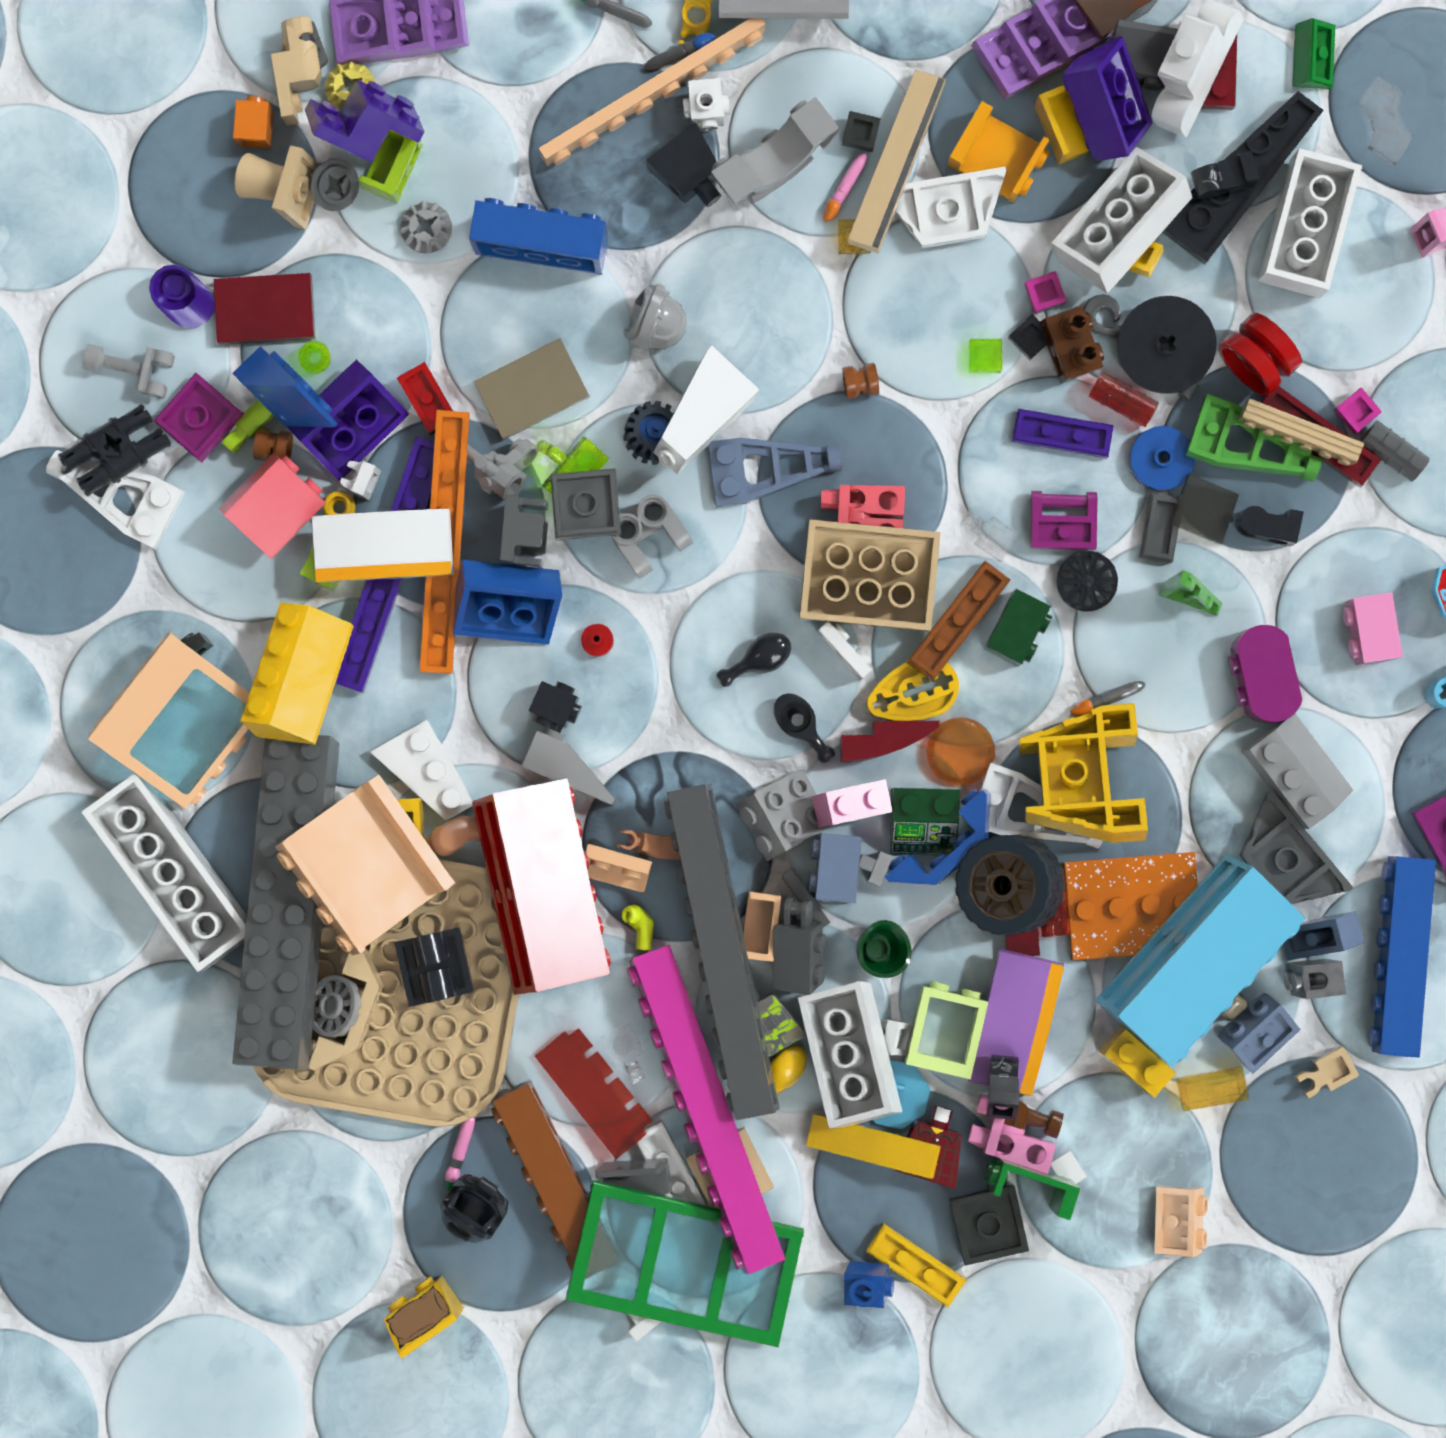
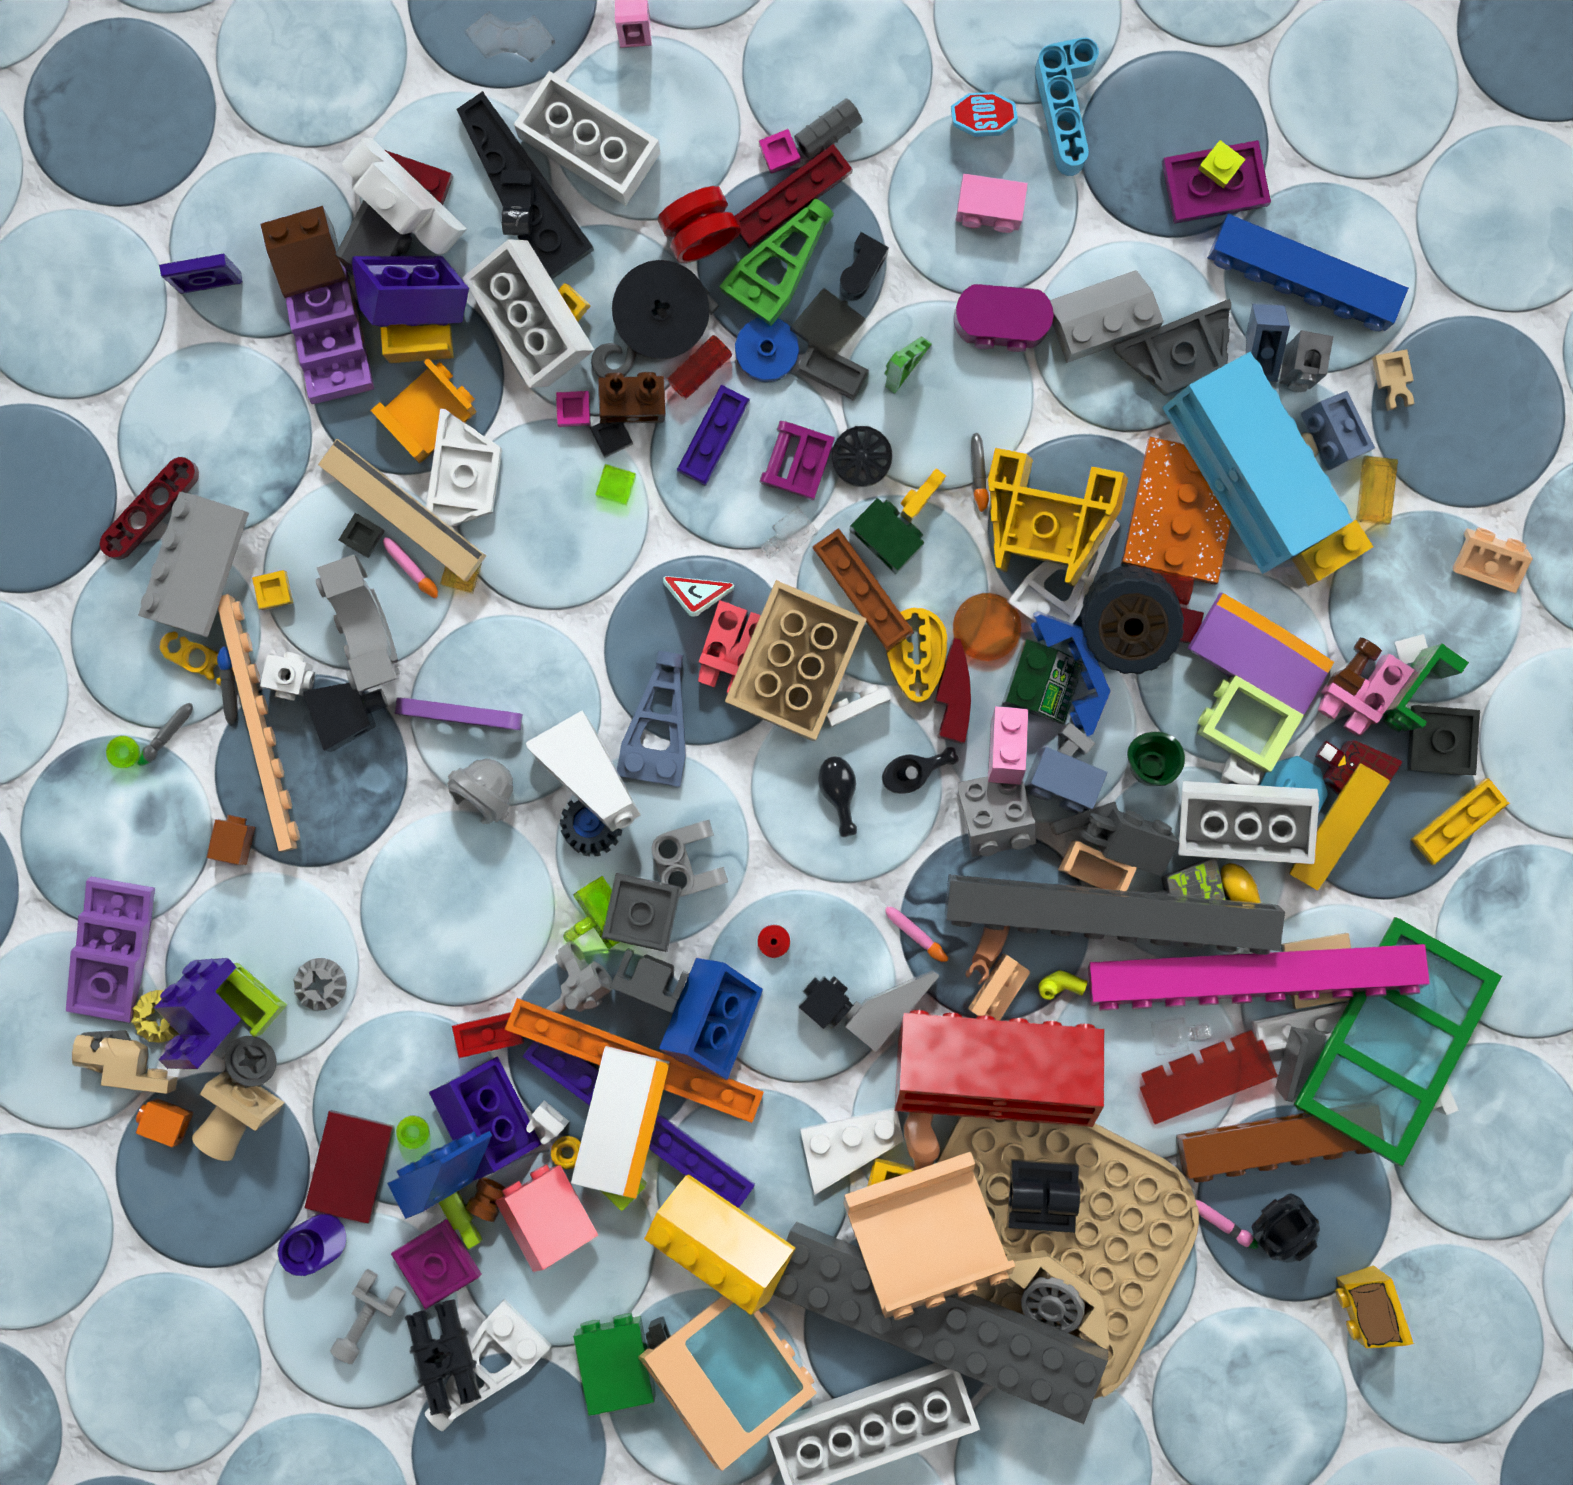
camera: 75 degrees left, 0 degrees up
(152, 608) = (610, 1364): none -> green brick
(531, 389) = (510, 930): dark tan tile -> none
(535, 101) = (231, 840): none -> dark orange brick
(539, 236) = (365, 877): blue brick -> none
(636, 794) = (914, 932): none -> bright pink piece
(720, 275) = (458, 713): none -> medium lavender beam
(782, 65) = (272, 590): none -> yellow plate
(863, 380) = (603, 608): dark orange wheel -> none
(867, 1284) = (1467, 872): blue brick -> none
(904, 464) = (696, 594): none -> piece
(1003, 1087) = (1321, 686): black leg -> none
(1060, 645) = (915, 501): none -> yellow plate
(1302, 432) = (784, 210): tan piece -> none
(1314, 54) = (425, 83): green slope -> none

